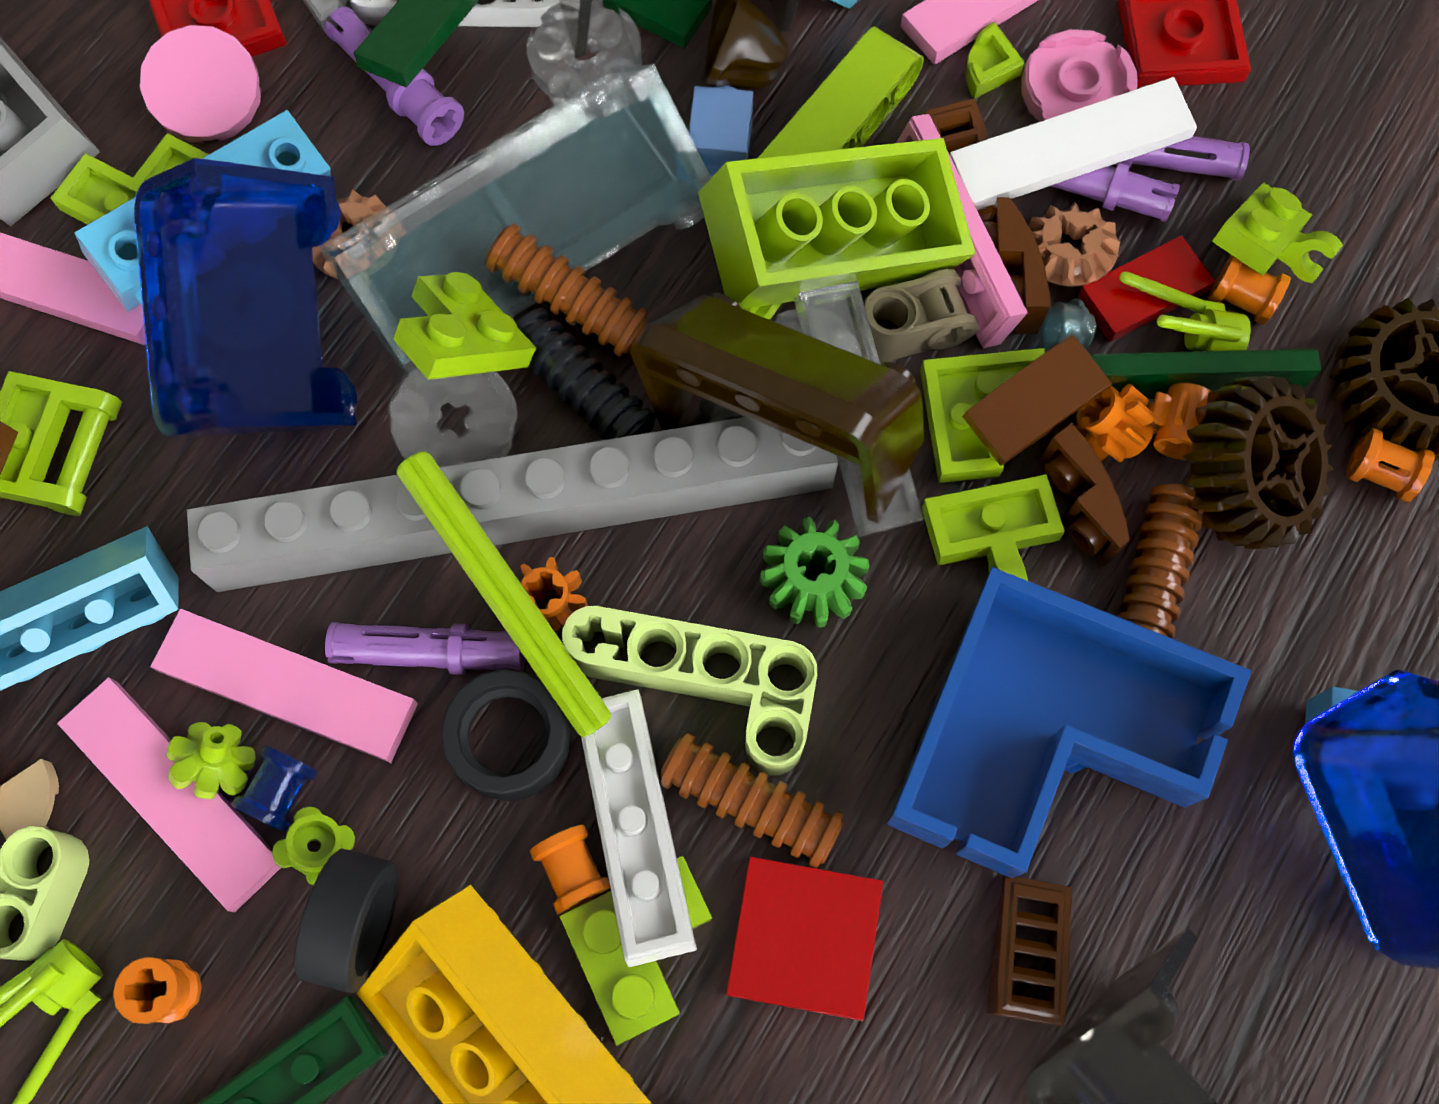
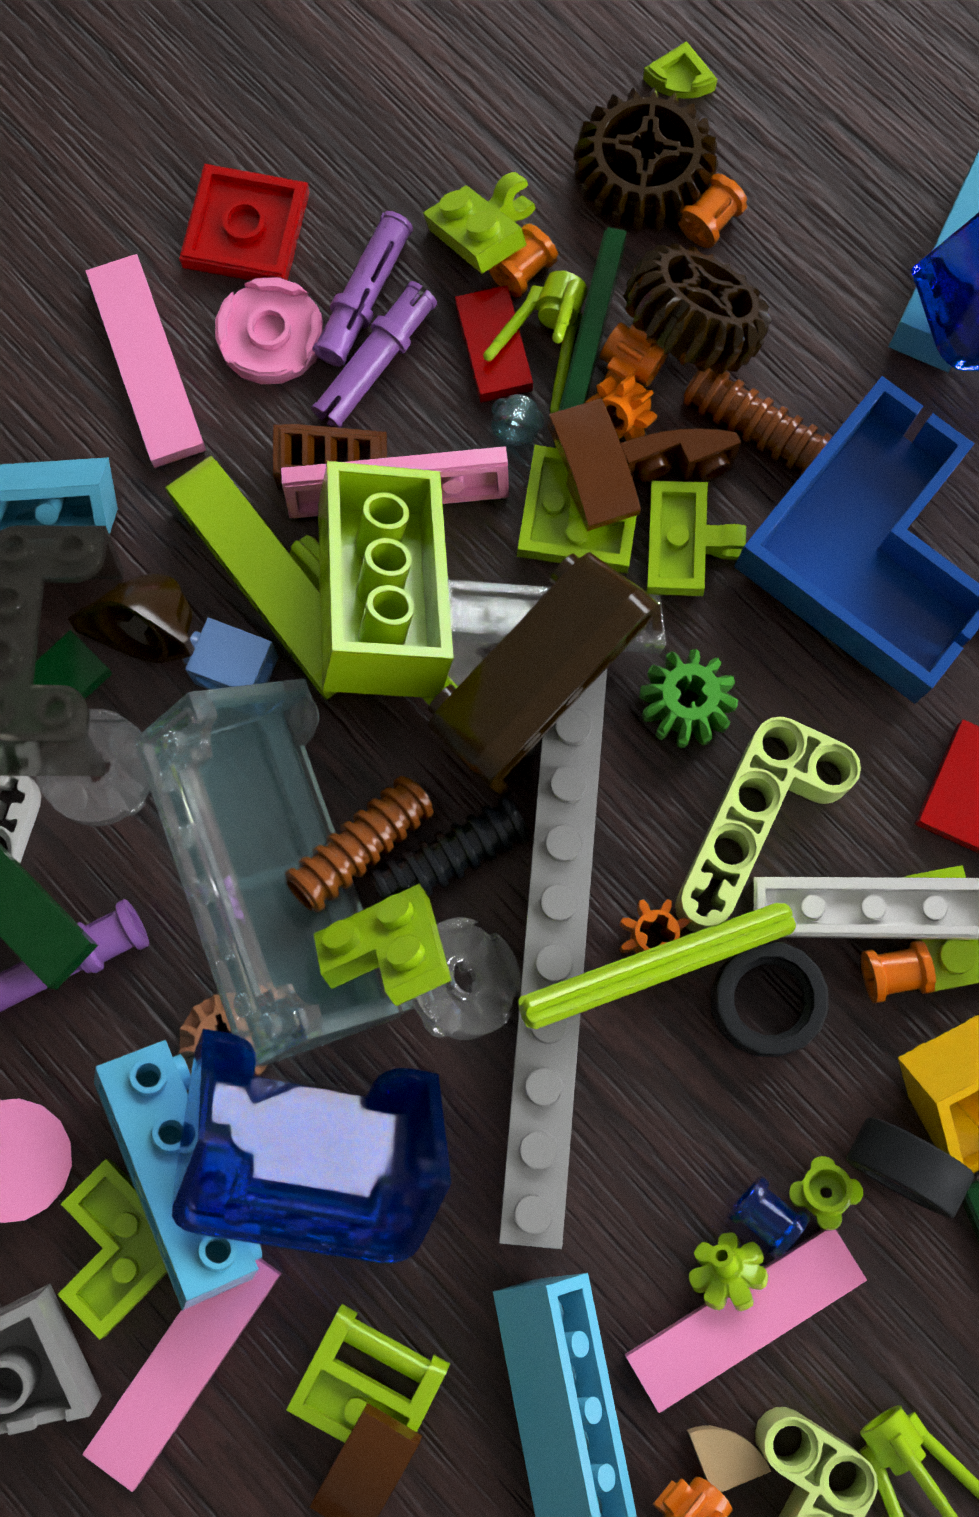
camera: 75 degrees left, 5 degrees up
(134, 988) = (934, 1370): orange bush -> none
(285, 685) = (670, 1194): bright pink tile -> none
(405, 646) = (669, 1056): medium lavender pin -> none
(751, 799) = (873, 806): dark orange piece -> none
(926, 314) = (471, 535): dark tan piece -> none
(991, 62) = (221, 399): lime tile -> none
(1022, 261) = (443, 435): reddish brown slope -> none
(1064, 263) = (454, 403): nougat gear -> none
(1075, 143) = (350, 354): white tile -> none

